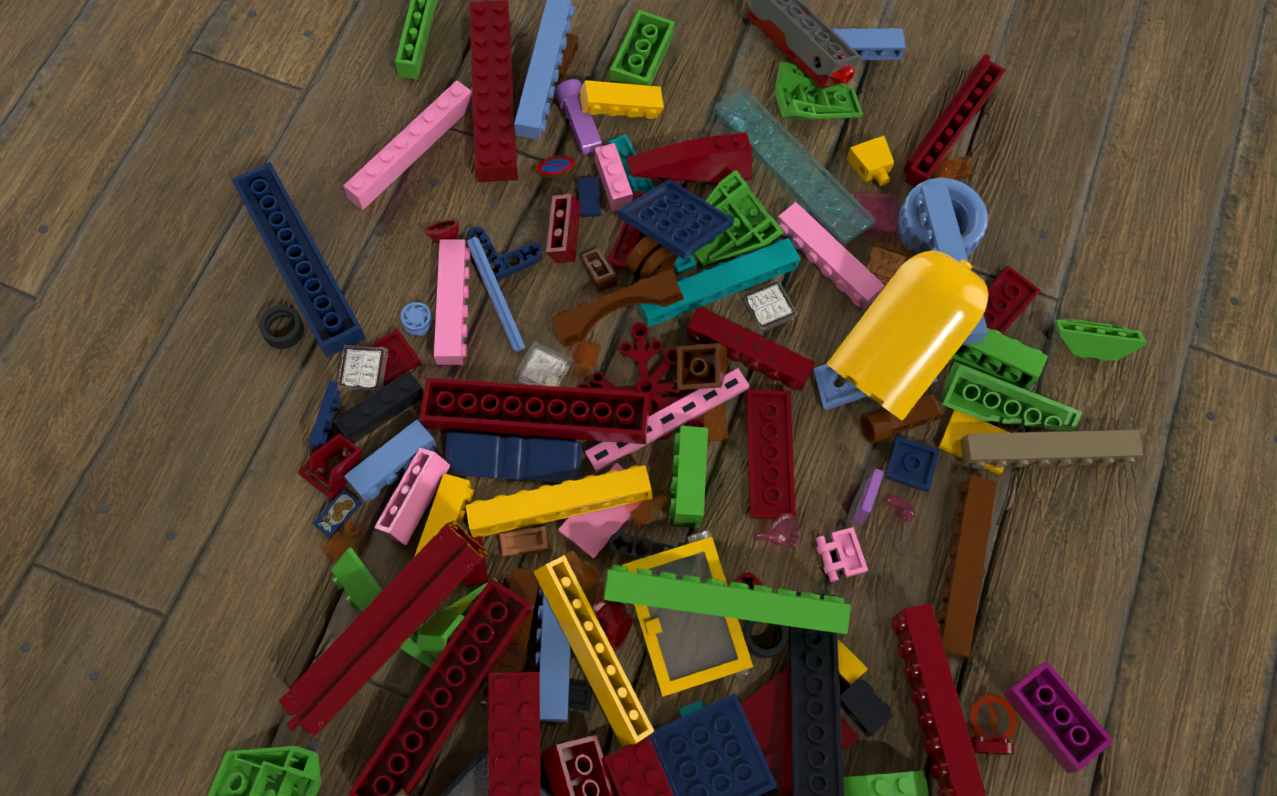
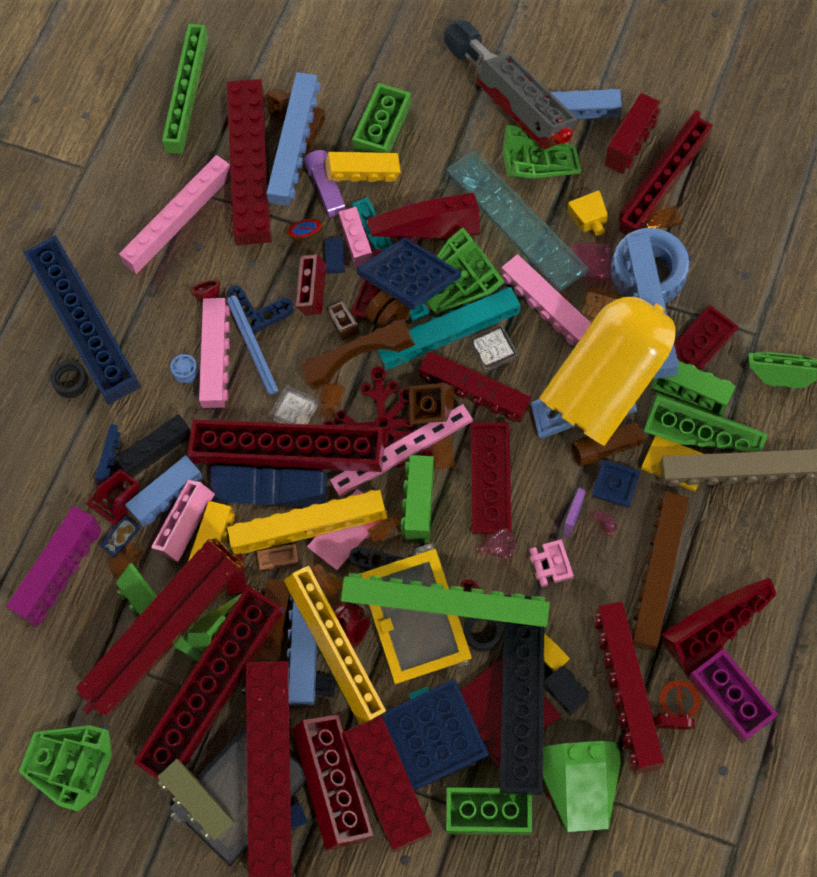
camera: 10 degrees right, 0 degrees up
(257, 549) = (54, 567): none -> magenta brick
(362, 368) = (139, 412): tile -> none
(400, 356) = (163, 402): dark red tile -> none
(527, 28) = (278, 103): none -> reddish brown slope
(918, 76) = (632, 133): none -> dark red brick
(1020, 637) = (709, 628): none -> dark red wedge

